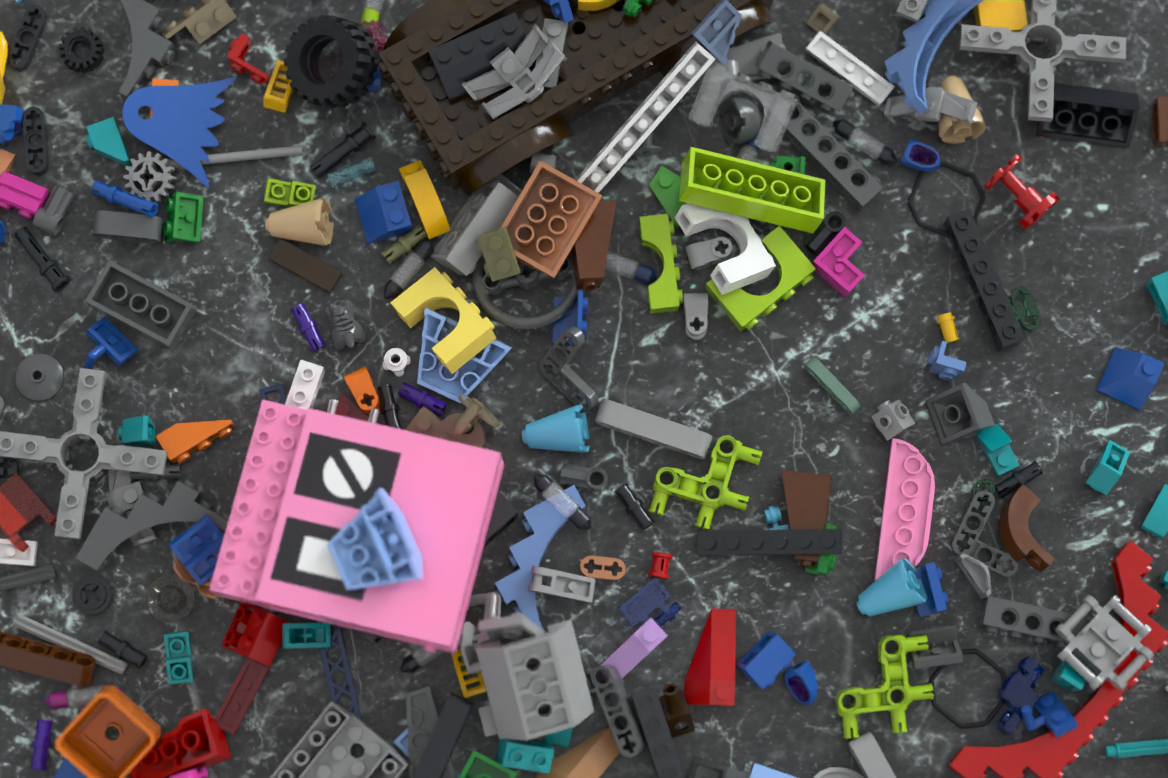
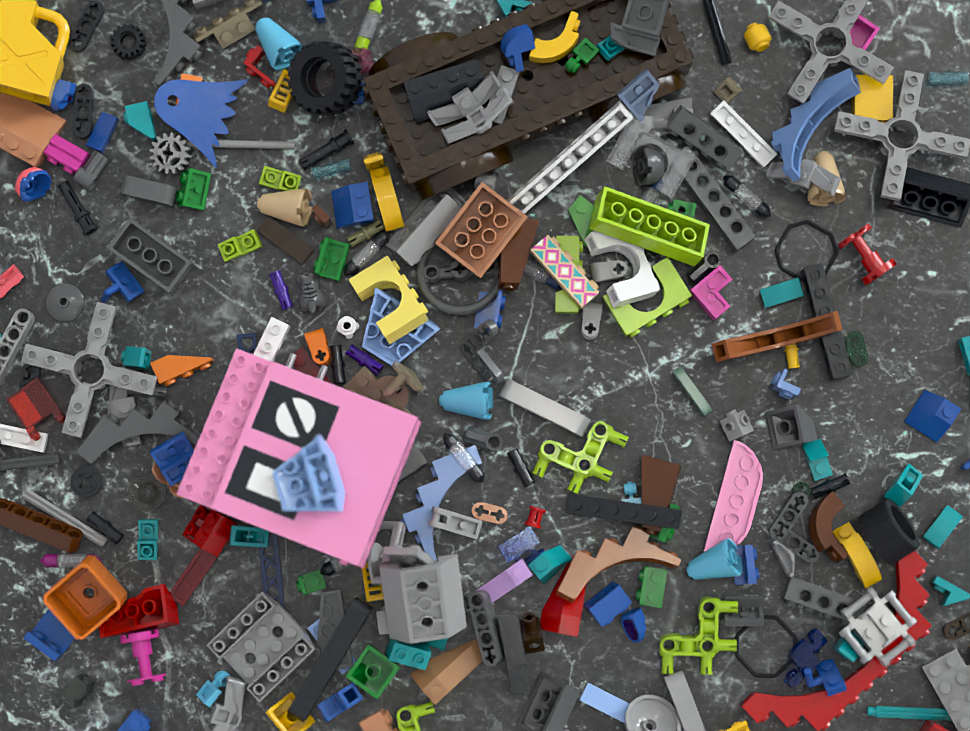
camera: 15 degrees right, 5 degrees up
(41, 744) = (33, 593): dark purple pin -> none
(62, 163) = (102, 132): none -> blue slope
(116, 195) = (143, 165): blue pin -> none
(250, 280) = (240, 245): none -> lime slope
(266, 29) = (277, 43): none -> medium azure cone
(346, 230) = (321, 217): none -> reddish brown plate
(365, 281) = (331, 259): none -> green bracket
(391, 684) = (311, 582): none -> green bracket
(403, 156) = (374, 161): none -> yellow slope
(498, 254) = (438, 253): olive bracket -> none
(656, 258) = (564, 271): none -> brick
(686, 620) = (550, 563): none -> teal slope
(760, 597) = (610, 553): none -> arch
(817, 633) = (651, 586): none -> green bracket
(920, 157) = (790, 214): rock -> none
(924, 251) = (781, 292): none -> teal slope
(926, 307) = (777, 337): none -> dark orange arch
(1068, 560) = (859, 555): none -> yellow arch
(1100, 523) = (889, 531): none -> black tyre

